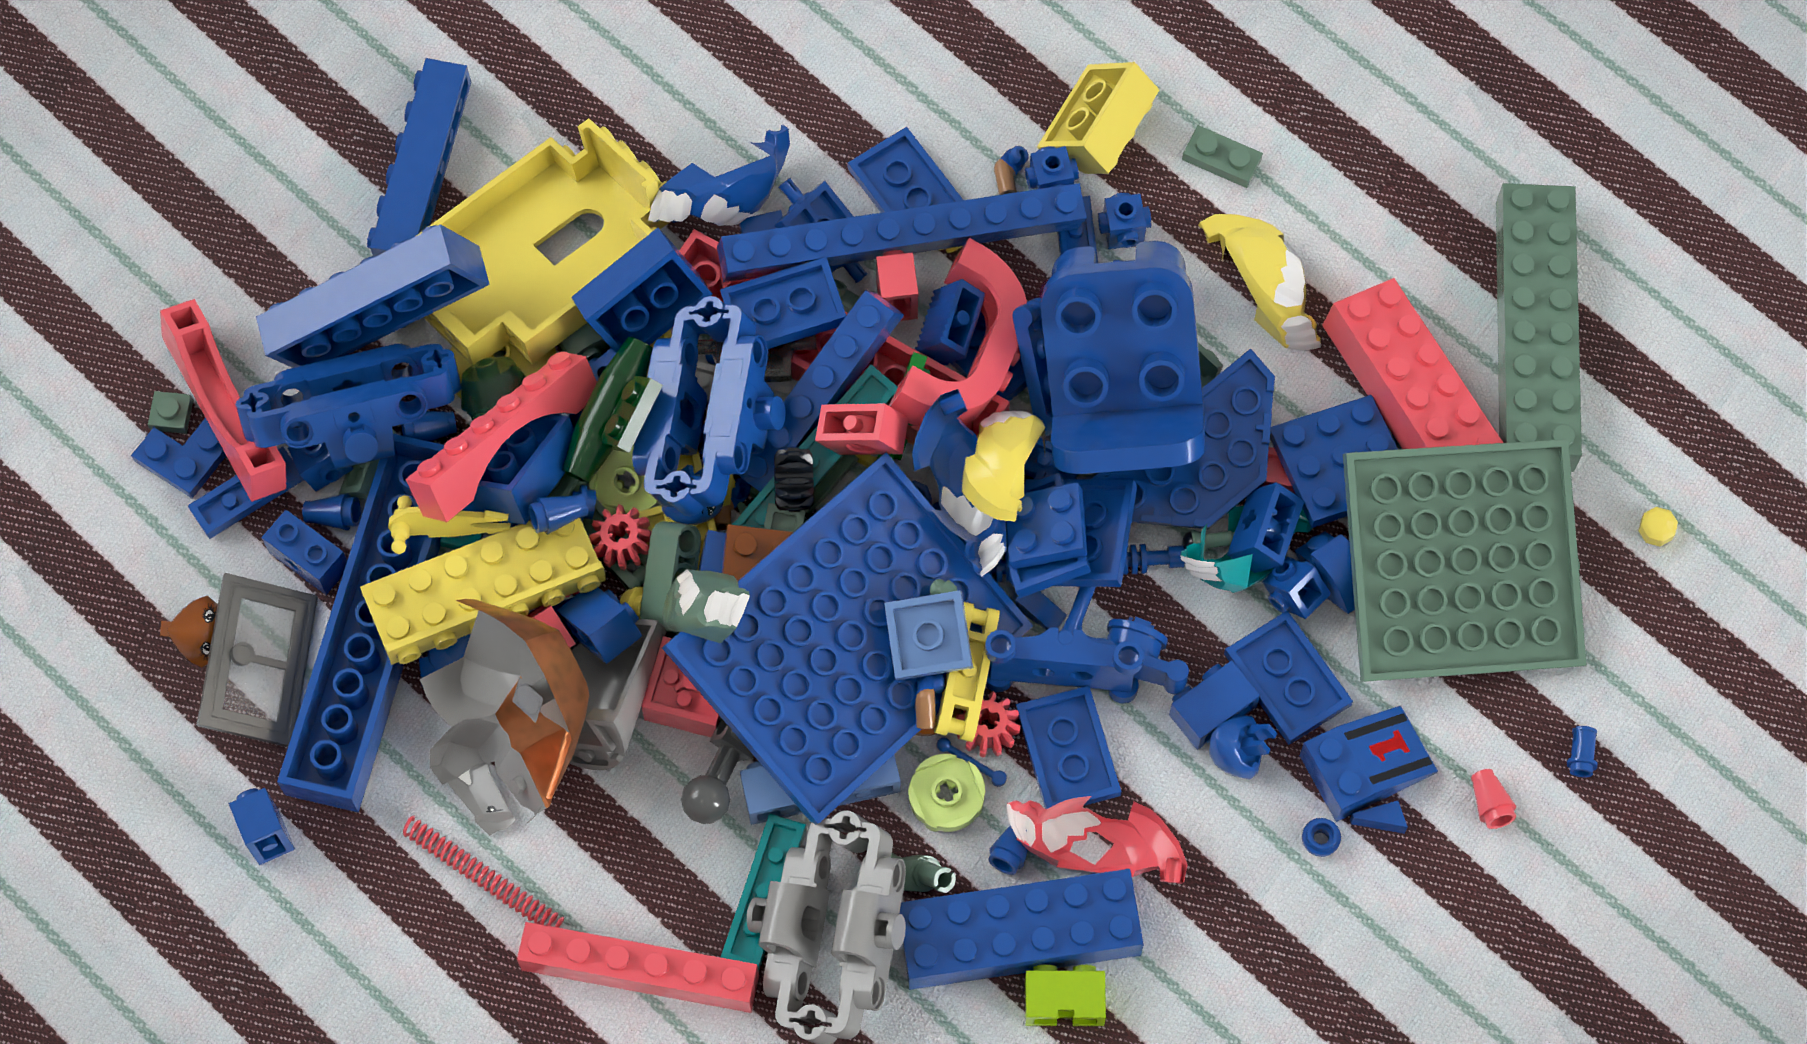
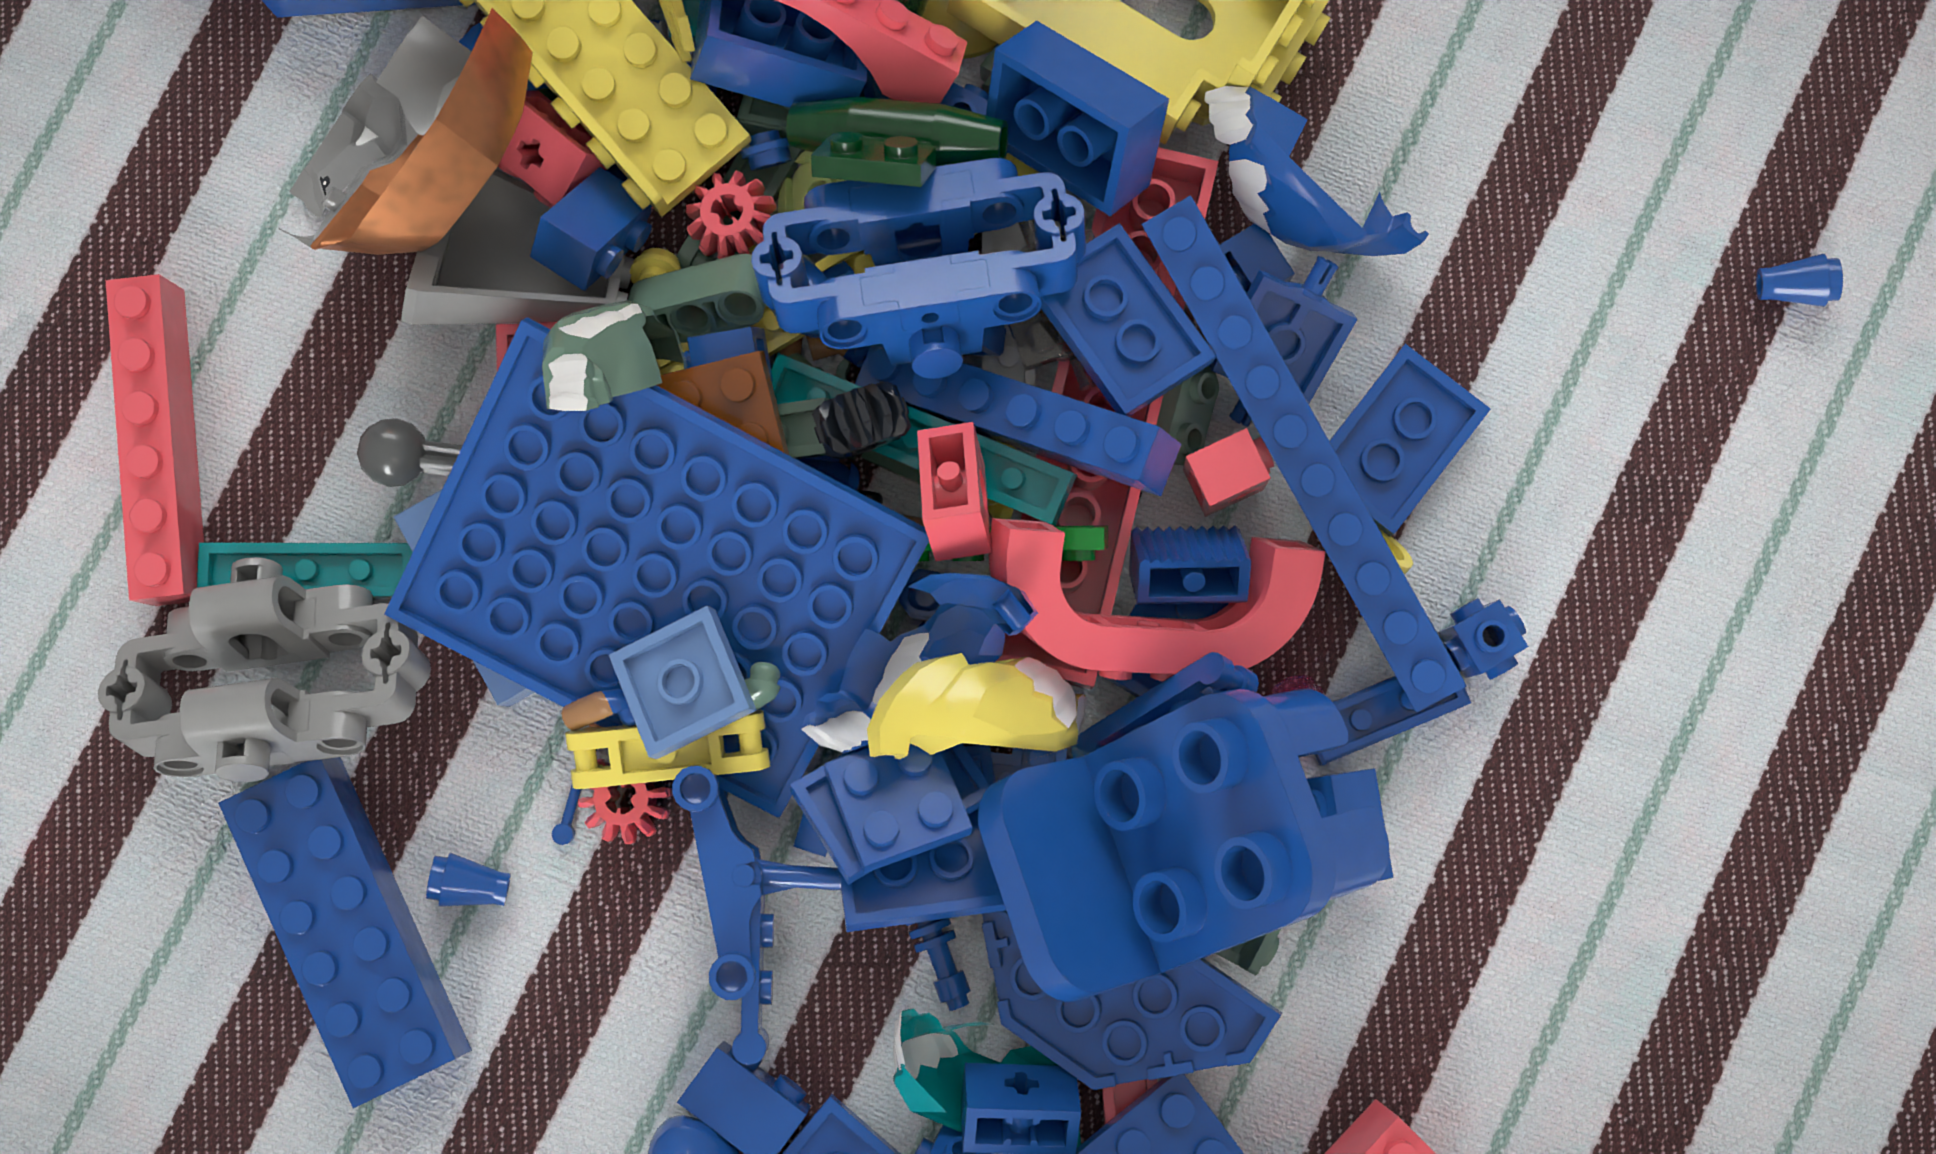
camera: 75 degrees right, 15 degrees up
(416, 825) = (230, 198): coral piece -> none
(555, 512) = (712, 111): blue cone -> none
(926, 873) = (392, 769): sand green arm -> none
(936, 812) = (485, 765): yellowish green plate -> none
(1008, 167) = (1477, 572): arm -> none
(1065, 994) = (271, 1017): lime brick -> none
(1068, 748) = (621, 918): blue plate -> none
(1101, 115) = (1602, 681): light yellow slope -> none
(1124, 220) = (1425, 769): blue brick -> none
(1137, 631) = (800, 967): blue piece -> none
(1139, 843) = (504, 1048): coral animal -> none
(1212, 540) = (983, 1008): sand green piece -> none
(1222, 156) = (1601, 876): sand green plate -> none
(1270, 274) = (1431, 997): light yellow animal -> none

